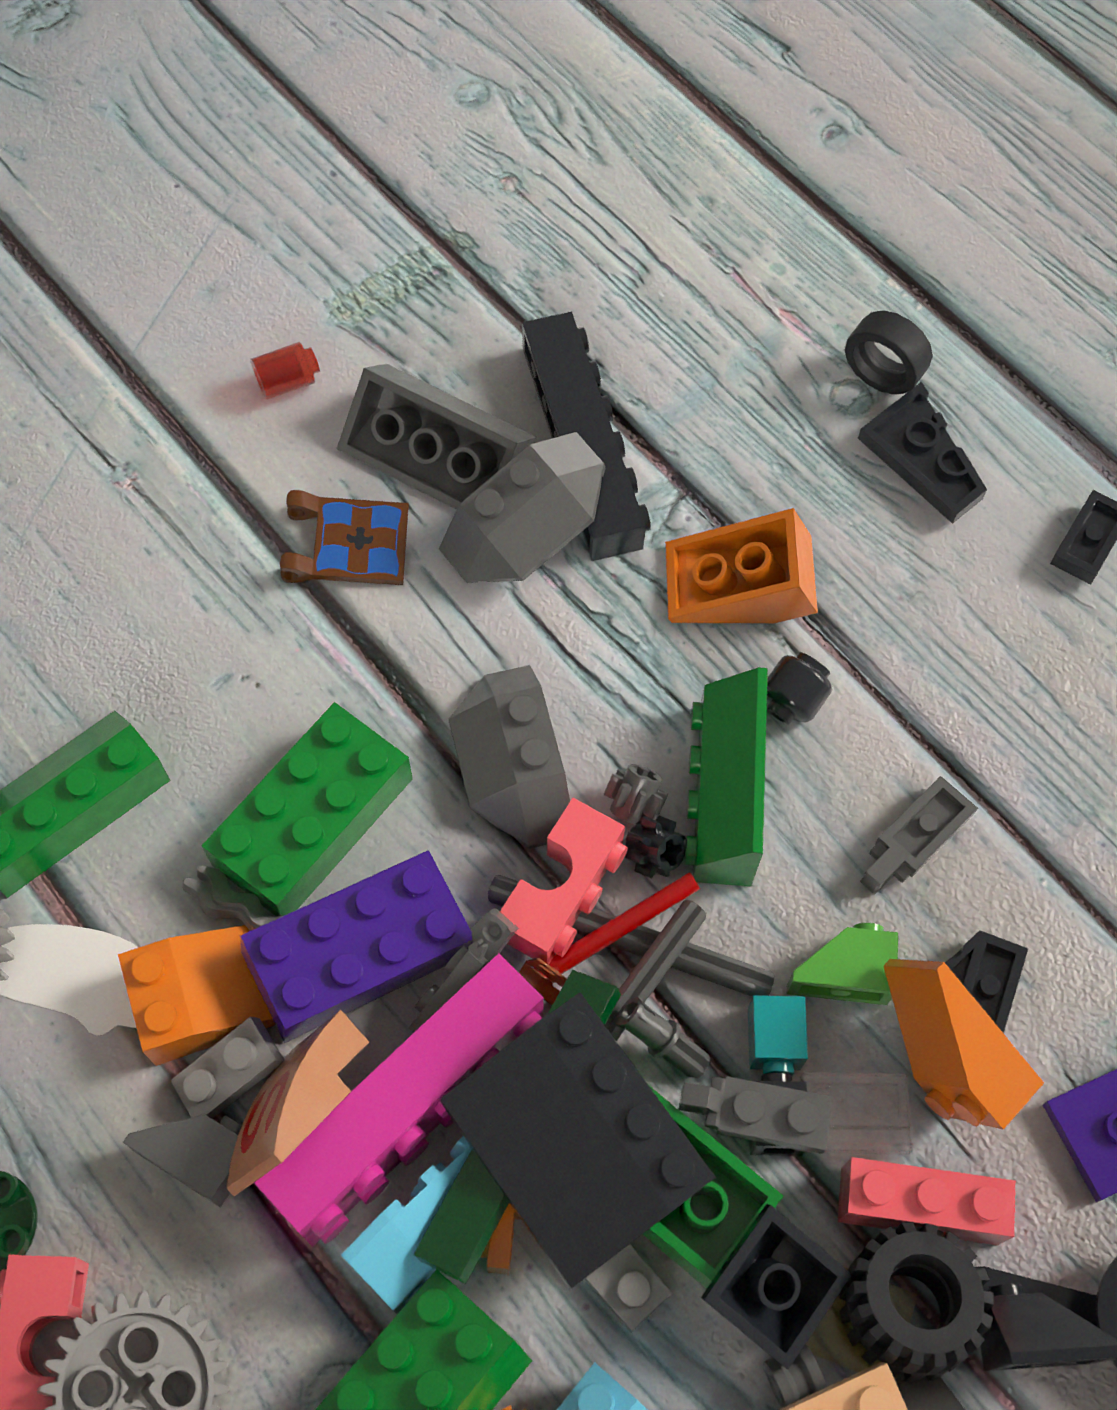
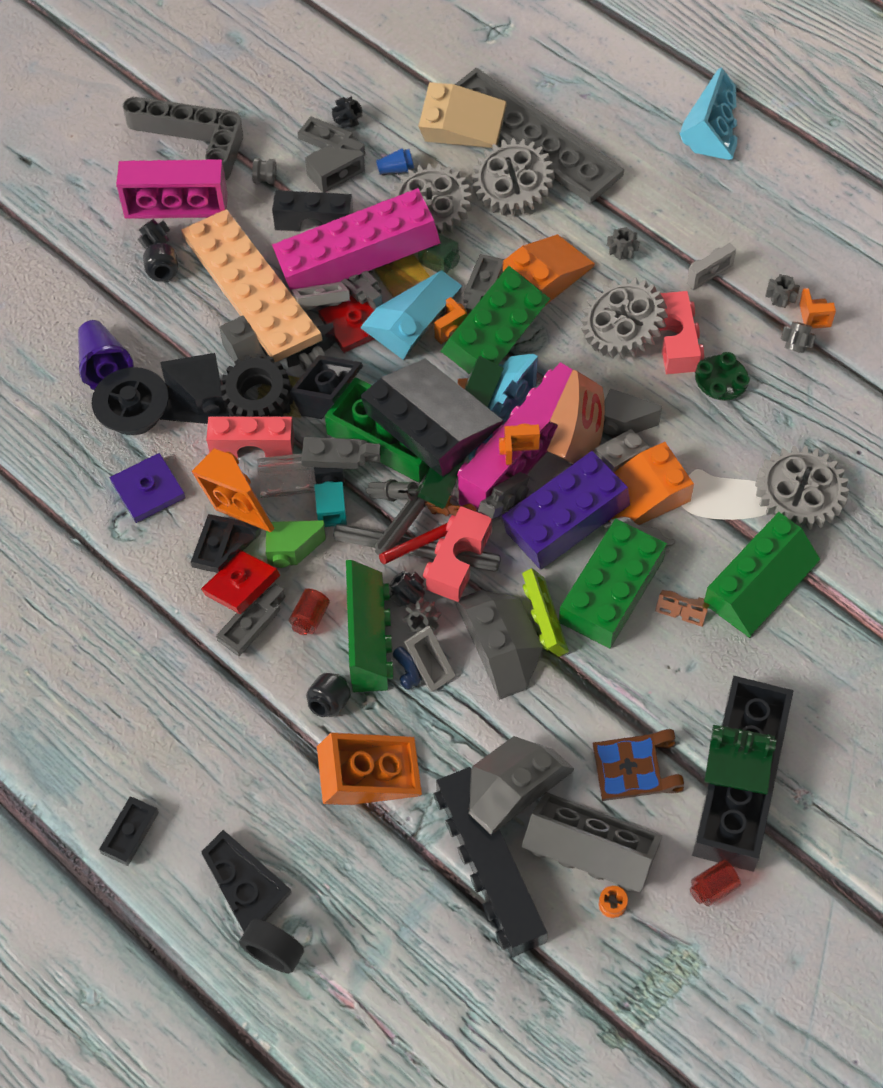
camera: 175 degrees right, 5 degrees down
(184, 771) = (686, 611): none -> dark orange piece
(195, 493) = (734, 818): none -> black brick
(198, 473) = (740, 759): none -> dark green hinge
(412, 1038) = (519, 438): none -> orange bracket
(426, 362) = (605, 907): none -> orange bush
(433, 779) = (544, 613): none -> lime plate
(632, 723) = (429, 659): none -> light grey slope
(664, 726) = (412, 674): none -> dark blue arm
(822, 832) = (309, 611): none -> clear red brick
(939, 897) = (240, 582): none -> red plate

